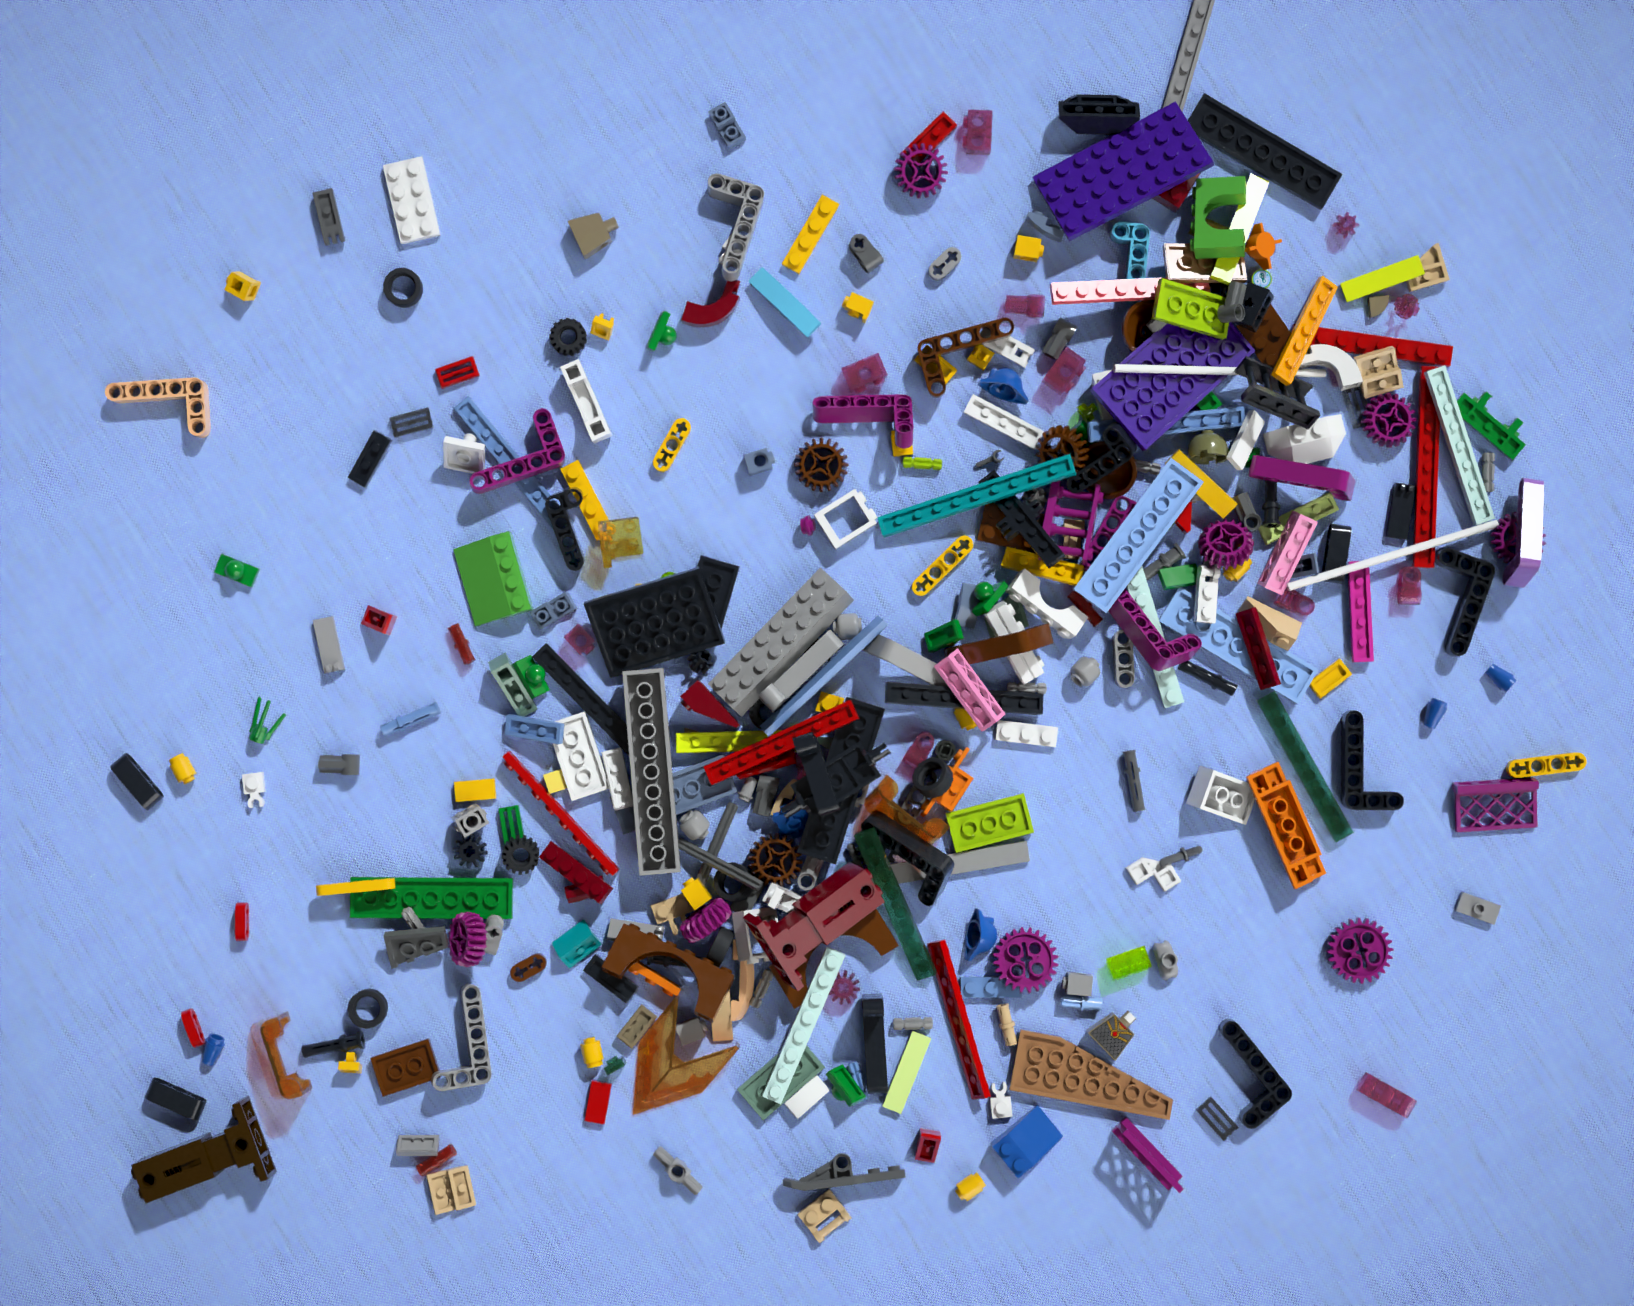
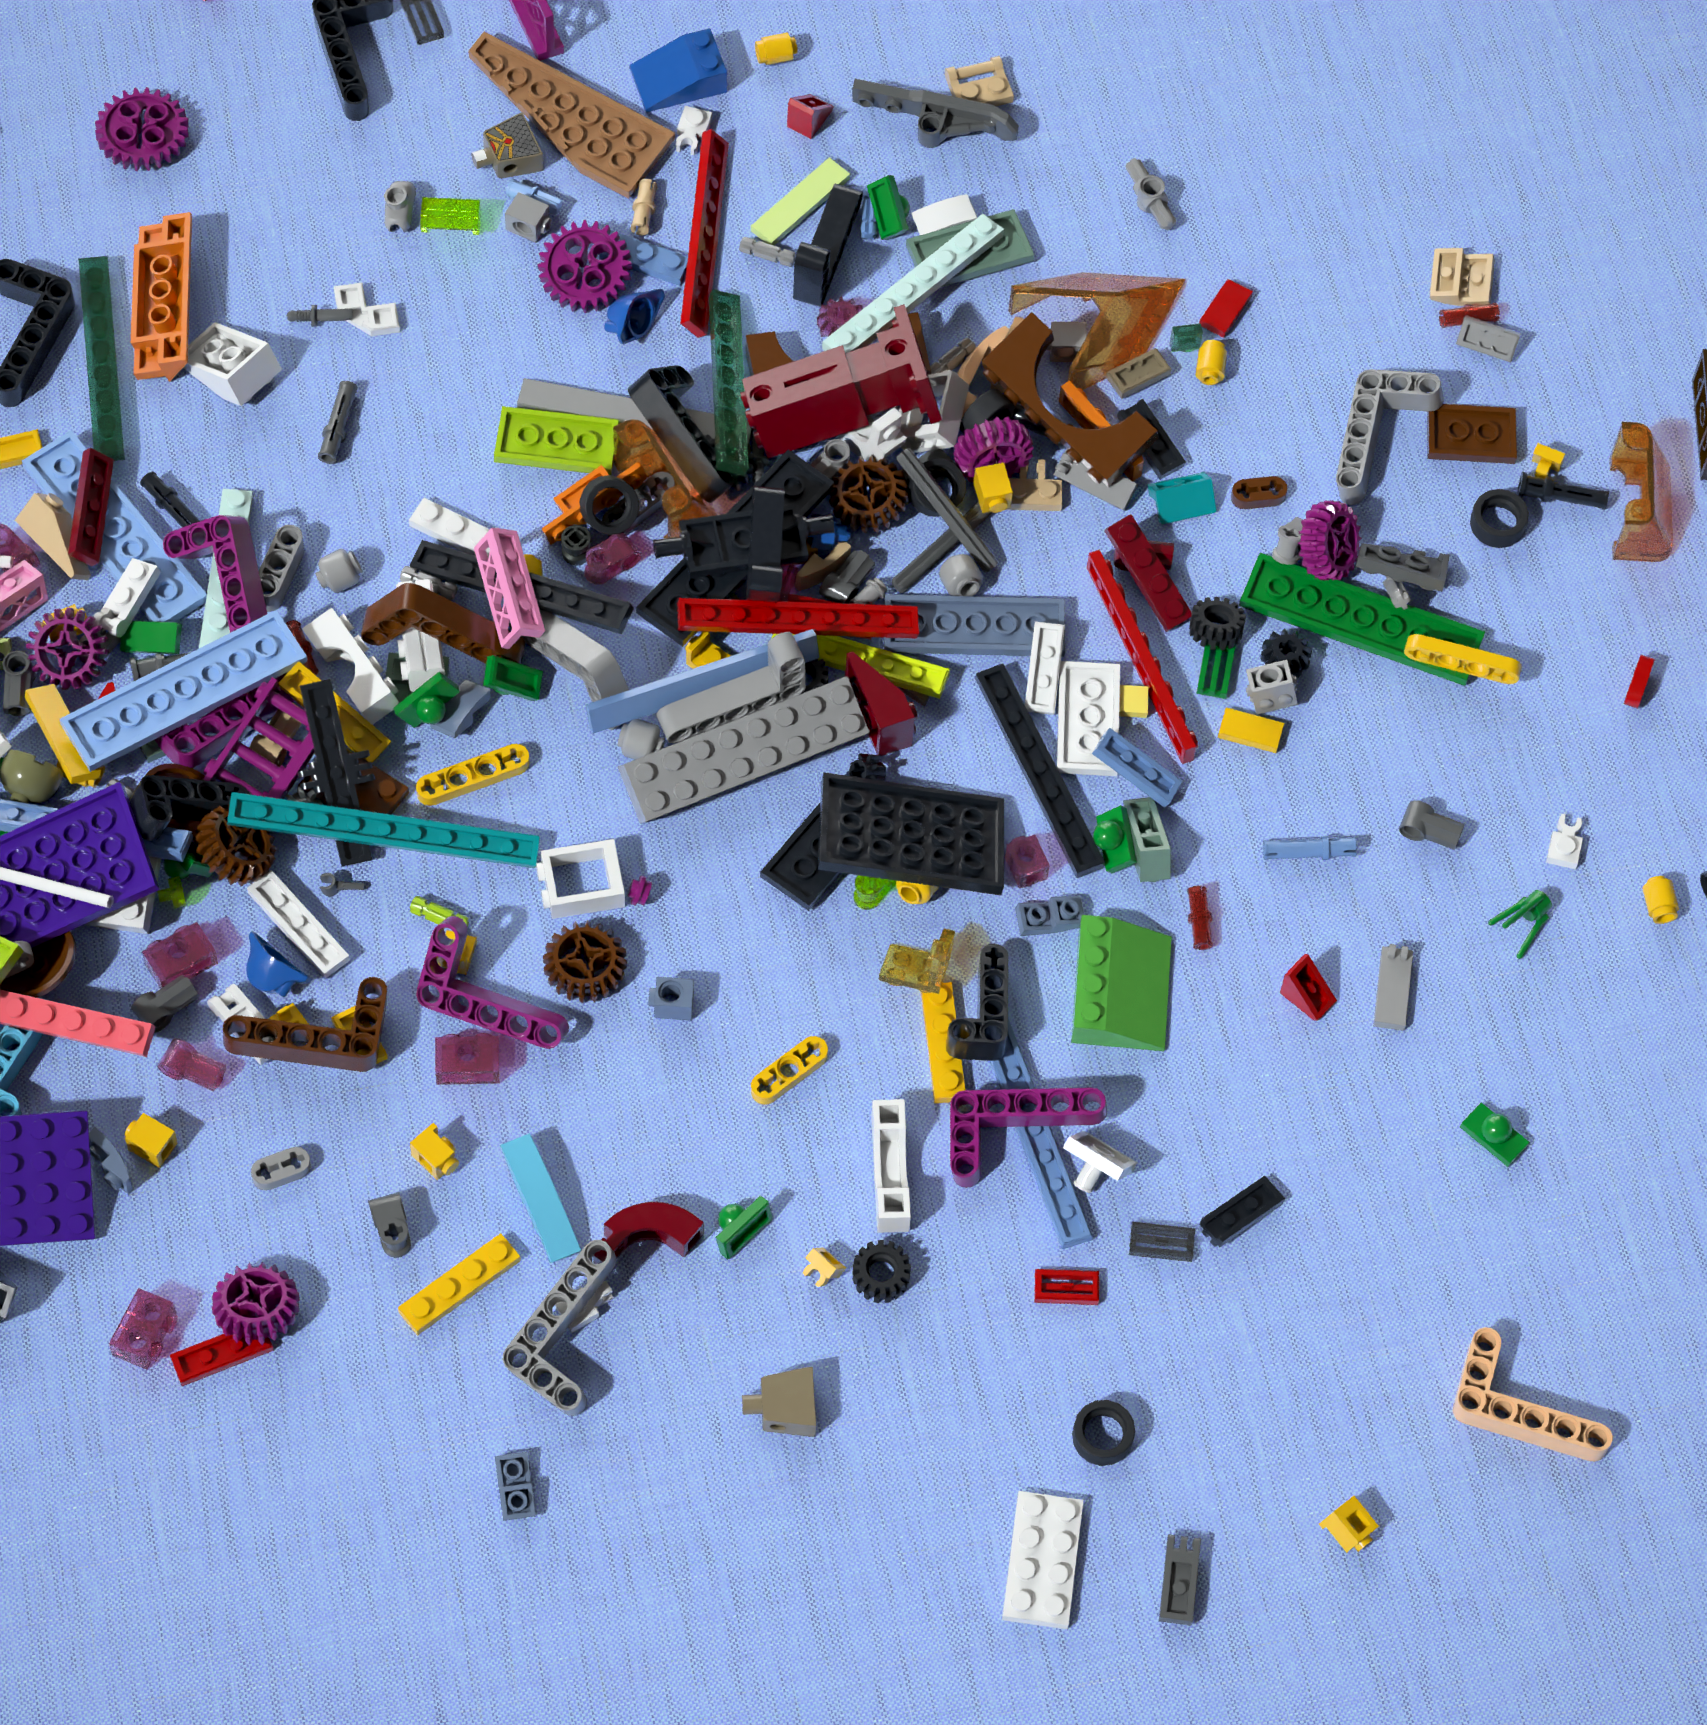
camera: 165 degrees left, 25 degrees down
(651, 771) = (992, 650): light grey brick -> none

